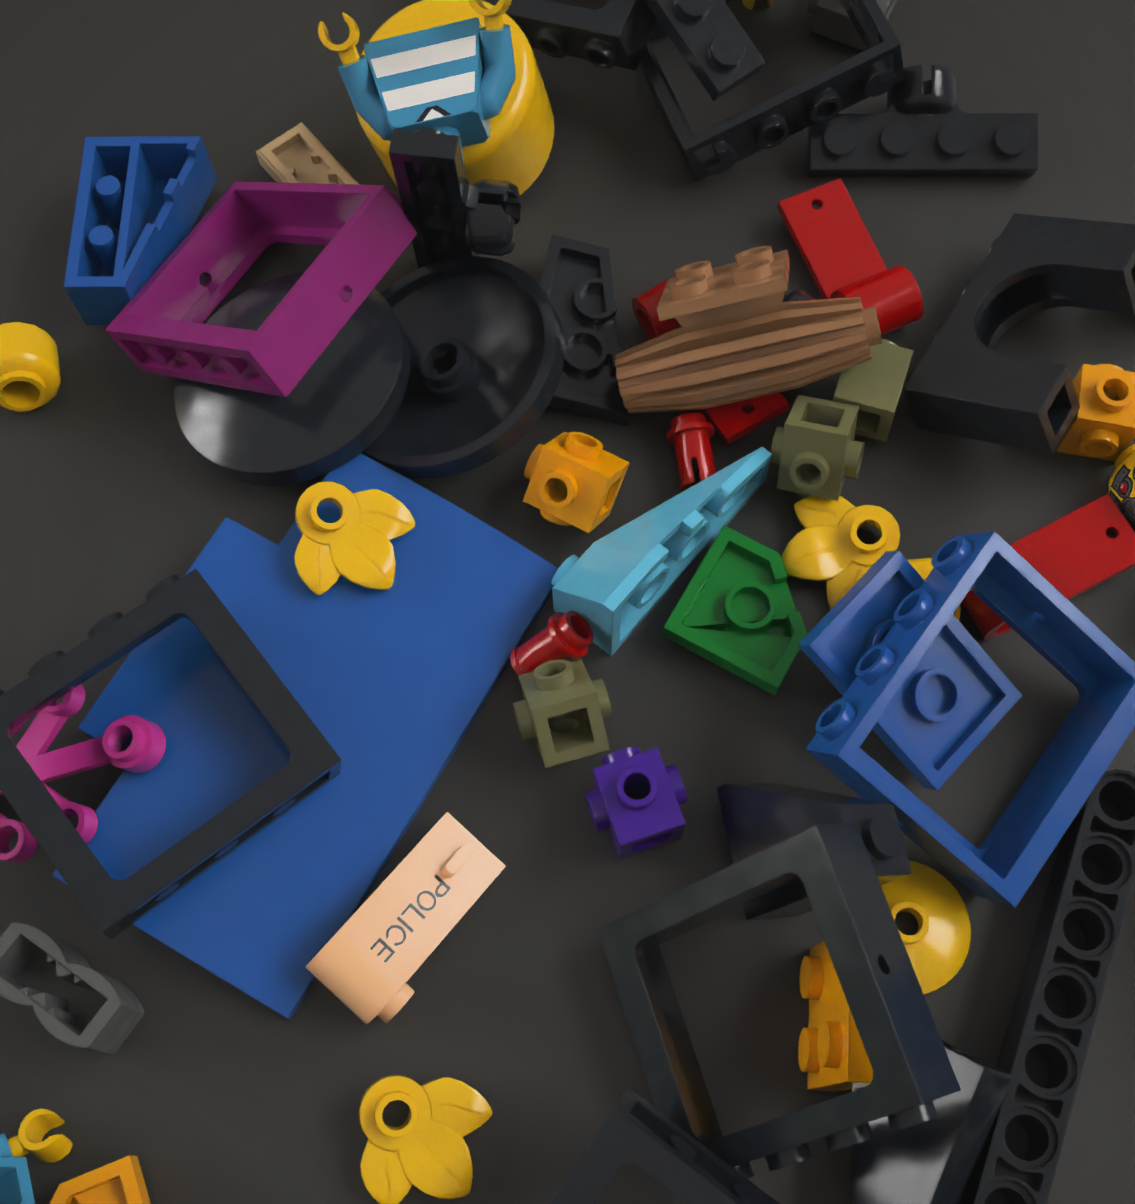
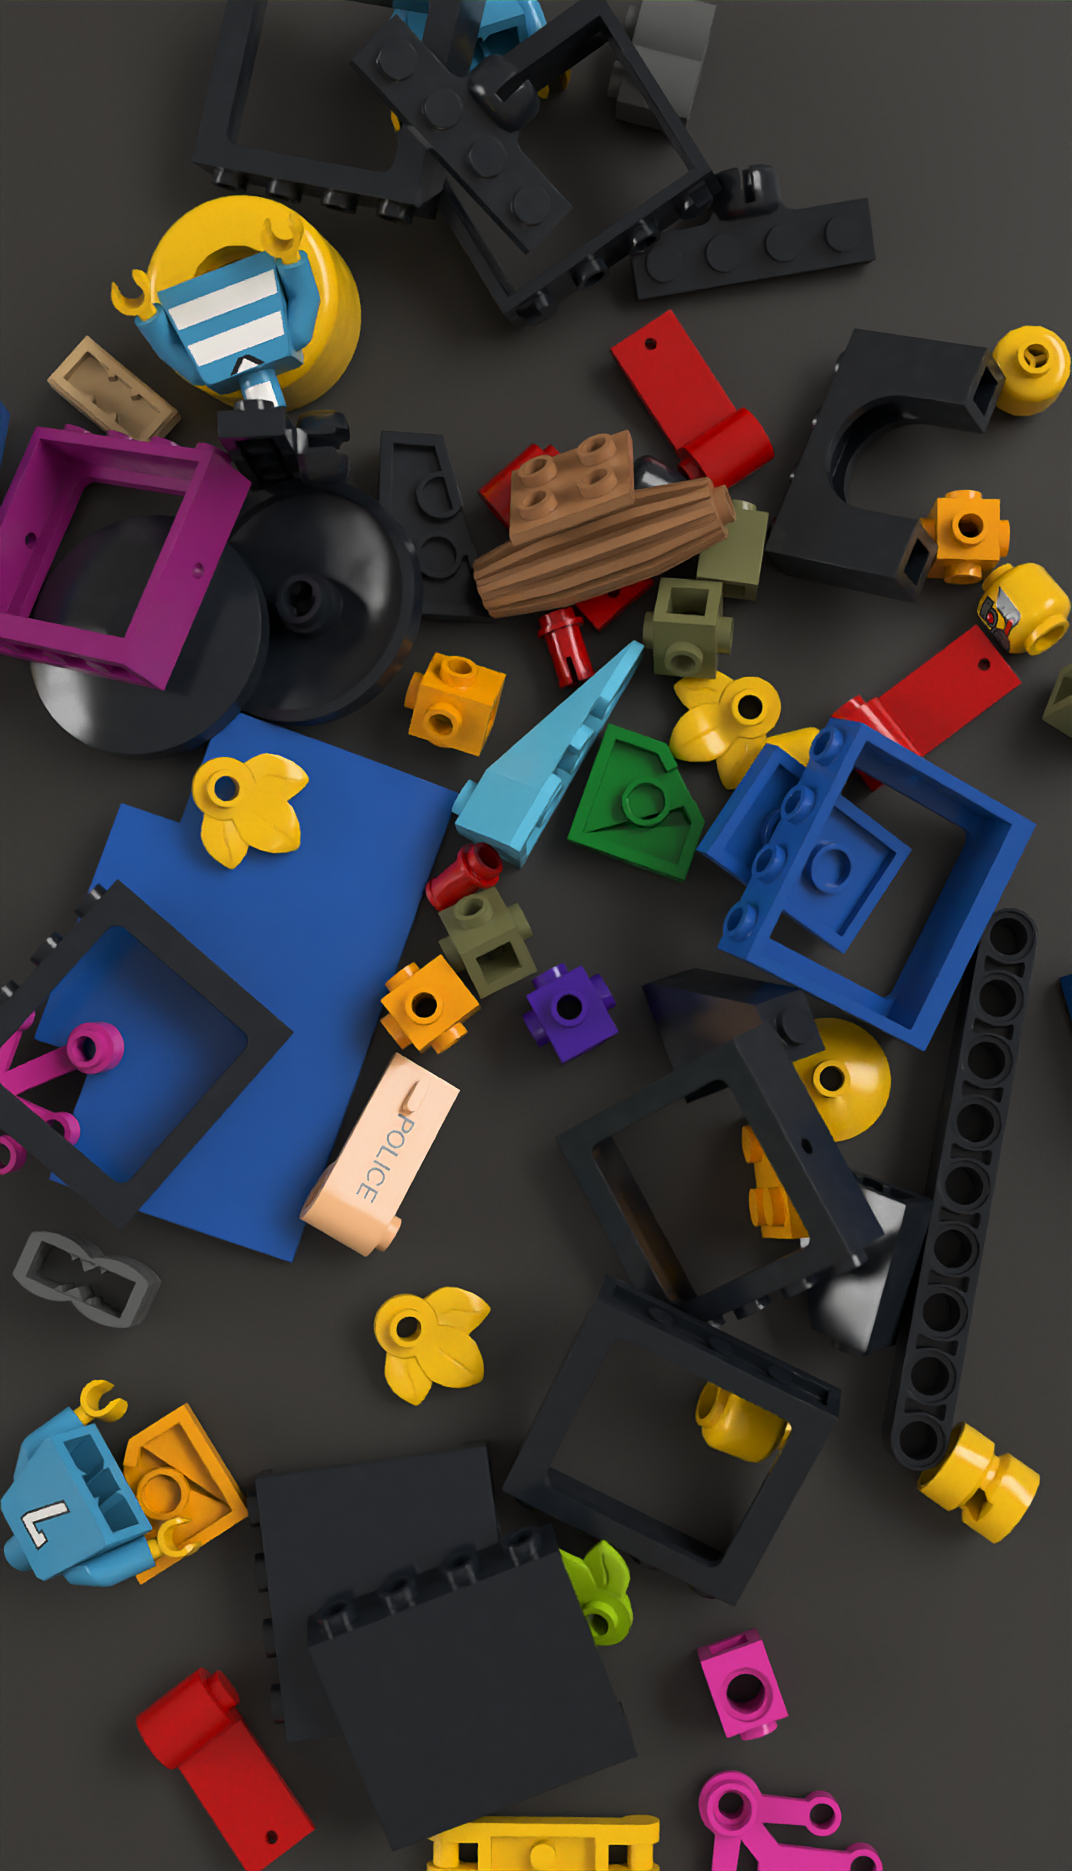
camera: 10 degrees left, 15 degrees up
(491, 746) = (433, 982): none -> light orange brick

